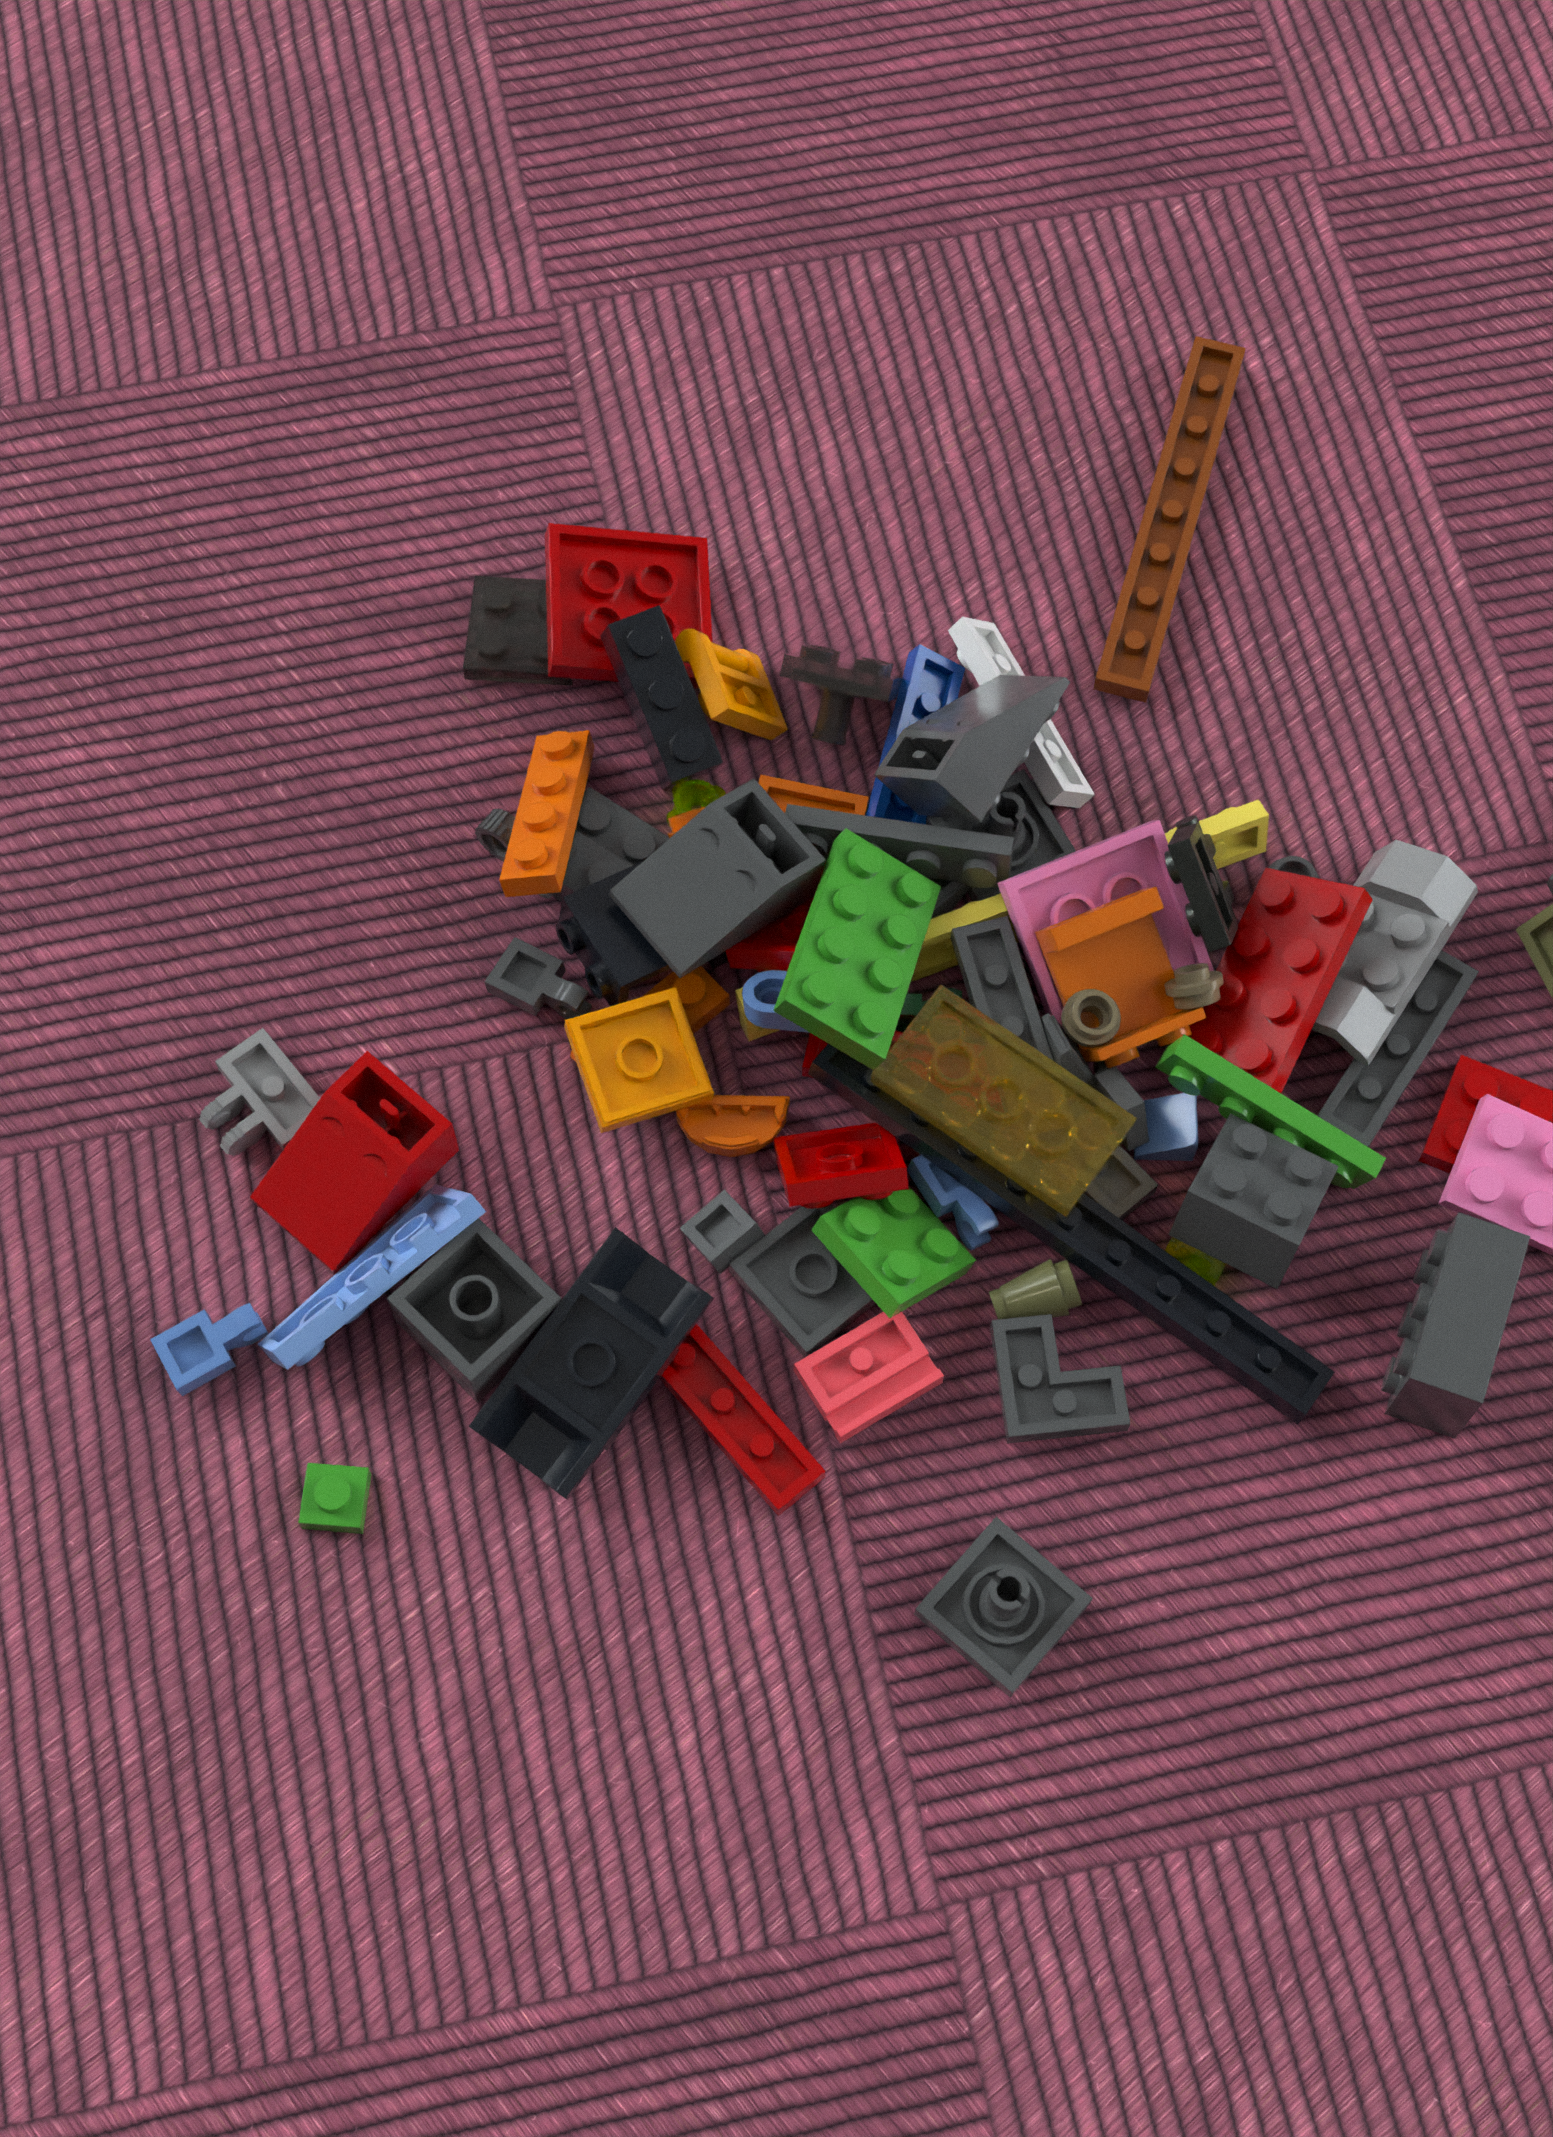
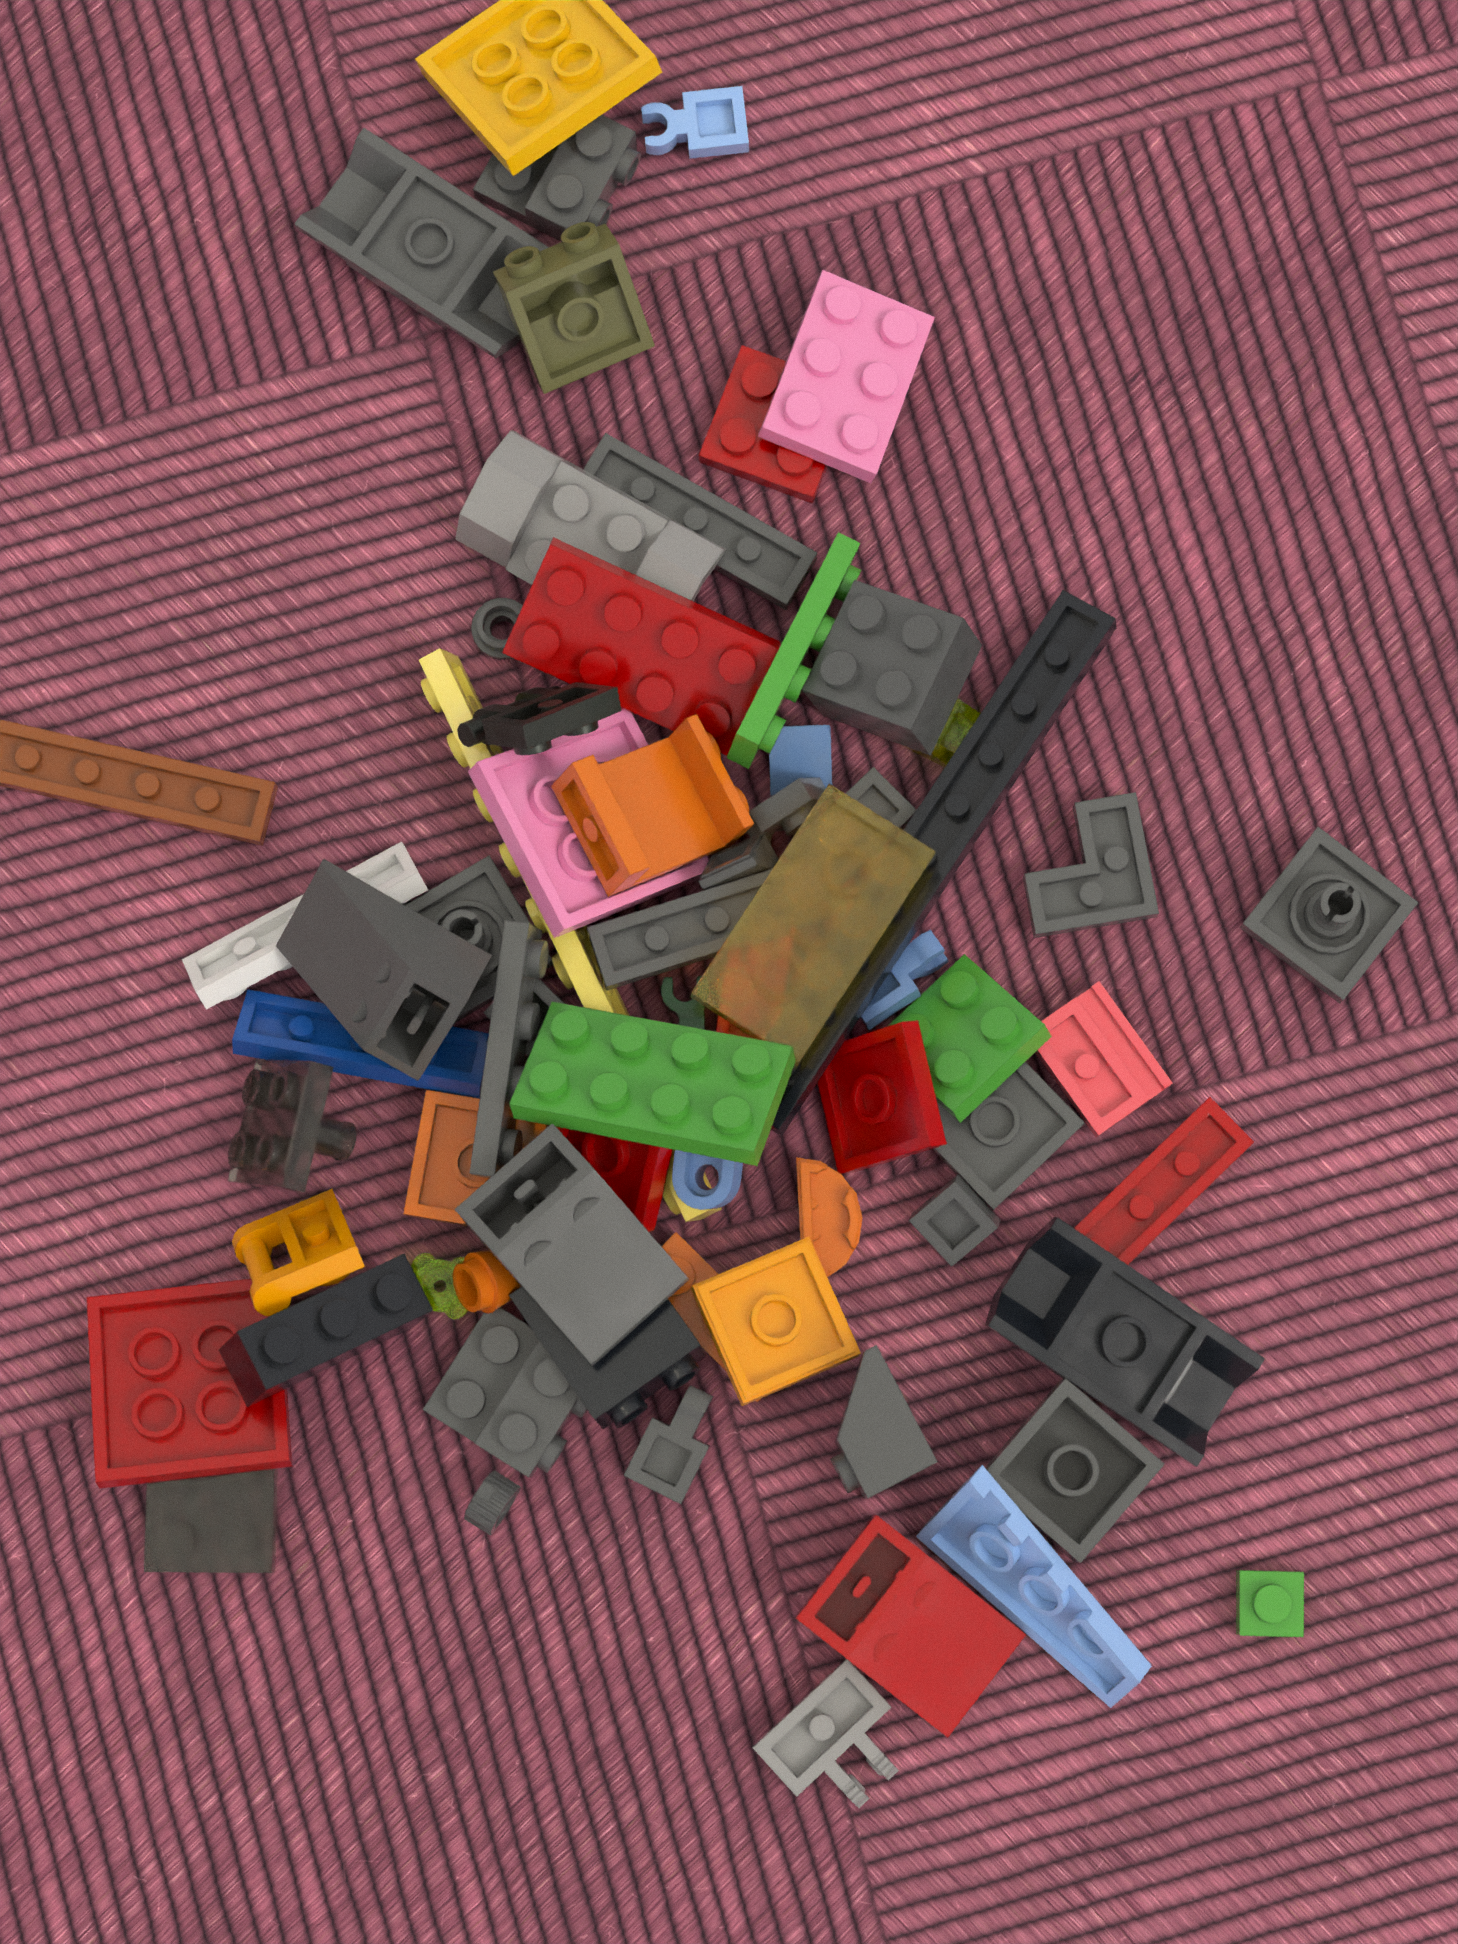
camera: 90 degrees left, 15 degrees up
(199, 1349) = (1126, 1765): medium blue plate -> none
(534, 1138) = (878, 1432): none -> dark grey slope
(547, 814) = (478, 1448): orange plate -> none
(1037, 1292) = (999, 890): olive cone -> none
(1097, 1003) = (707, 819): dark tan plate -> none
(1194, 986) = (658, 726): dark tan plate -> none
(1454, 1324) = (1016, 467): dark grey brick -> none

